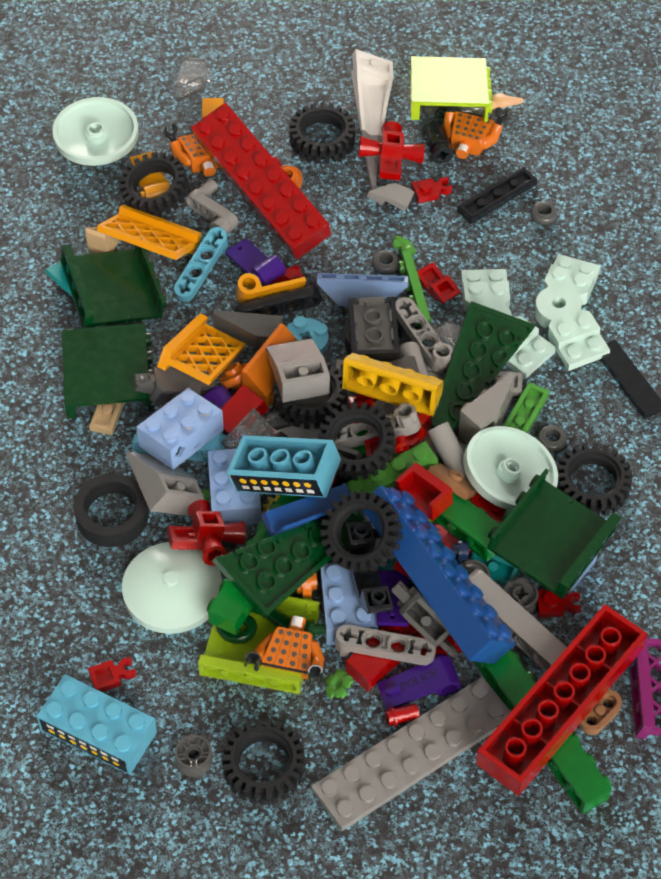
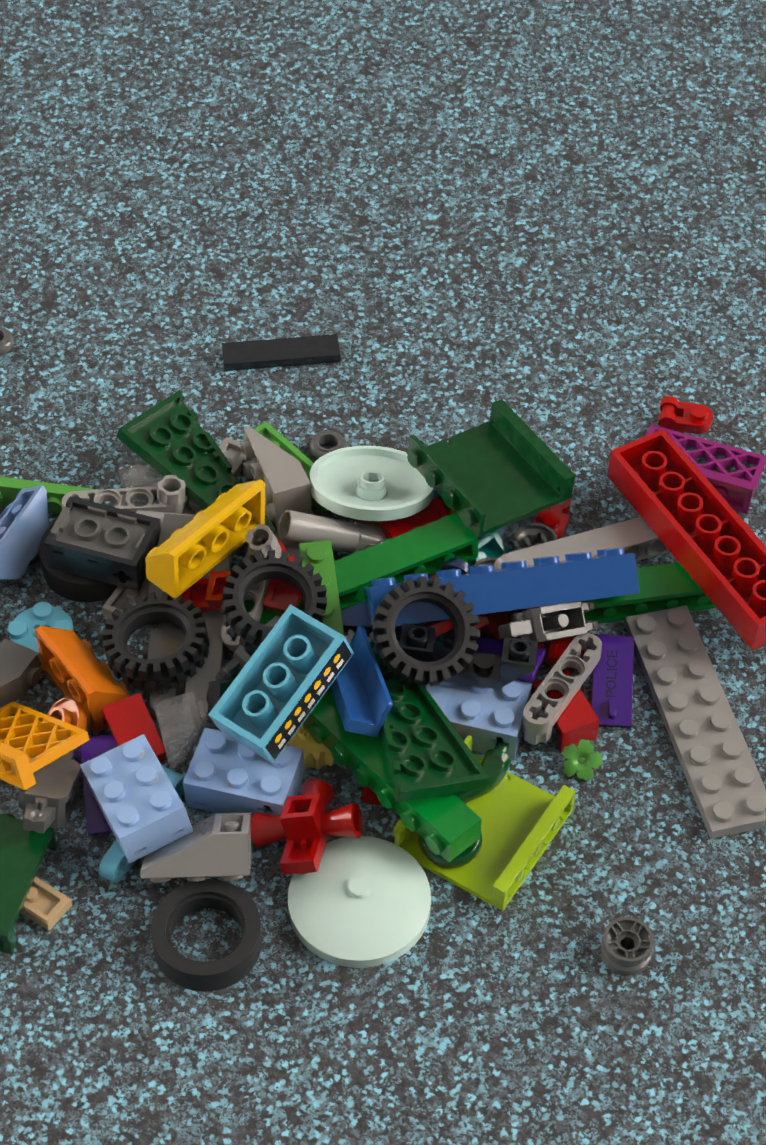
camera: 70 degrees left, 5 degrees down
(97, 724) = (543, 1044): medium azure brick -> none
(107, 676) = (469, 1012): red plate -> none
(263, 790) = (658, 906): black tyre -> none
(289, 651) = (530, 785): orange torso -> none
(299, 370) = (128, 625): light grey slope -> none
(401, 714) = (646, 713): red pin -> none
(429, 492) = (371, 561): red panel -> none
(436, 284) = (47, 469): red slope -> none
(454, 480) = (365, 539): medium nougat plate -> none
(492, 290) = (91, 431): light aqua plate -> none
(559, 308) = (151, 372): light aqua plate -> none
(611, 462) = (404, 403): black tyre -> none

